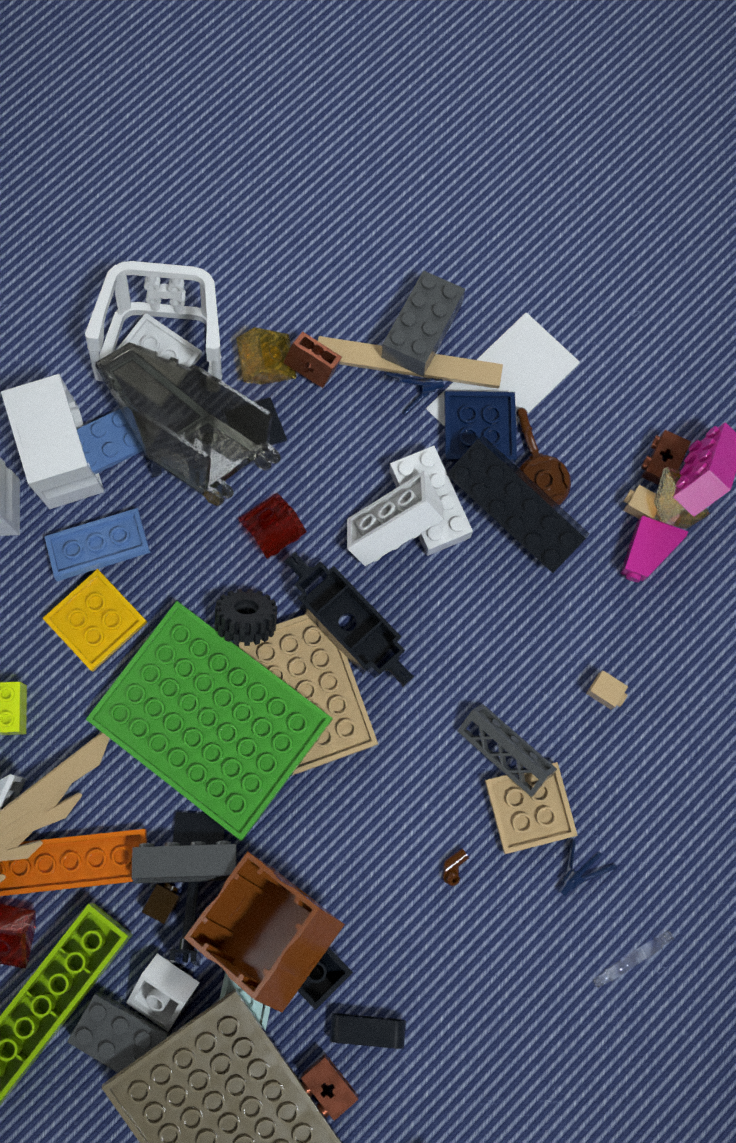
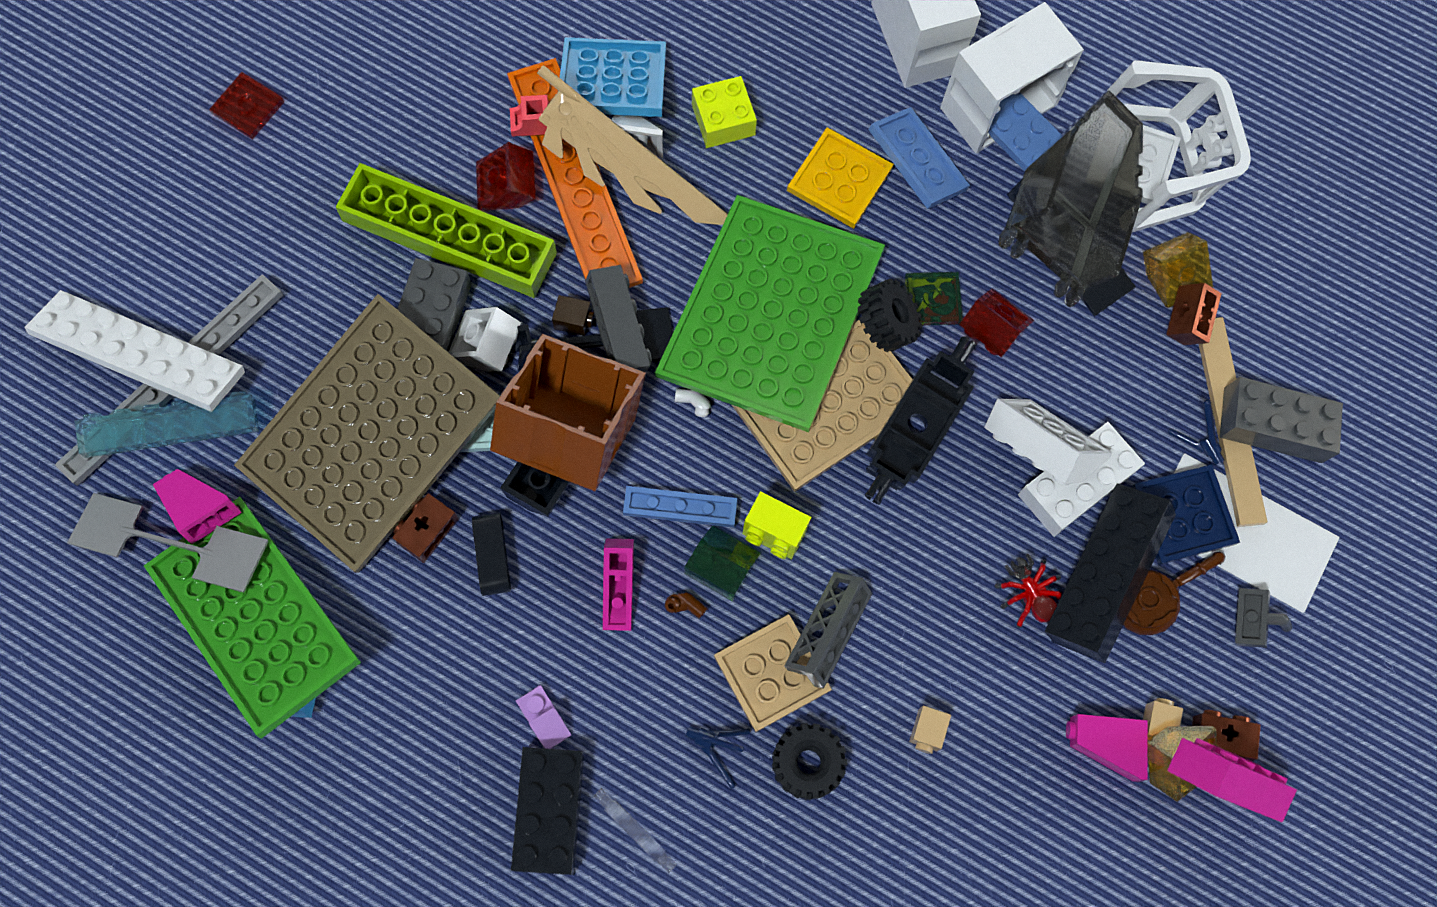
camera: 75 degrees right, 5 degrees down
(232, 570) = (936, 297): none -> clear green tile
(277, 806) = (697, 399): none -> white arm
(367, 849) = (680, 506): none -> medium blue plate
(410, 770) = (775, 526): none -> neon yellow brick
(422, 921) = (618, 584): none -> dark pink slope
(425, 824) = (721, 563): none -> clear green slope
(516, 572) = (1035, 595): none -> animal
(522, 1016) = (543, 718): none -> lavender slope
(578, 402) = (1254, 618): none -> dark grey plate
(604, 1031) = (547, 811): none -> black brick
(630, 797) = (831, 761): none -> black tyre

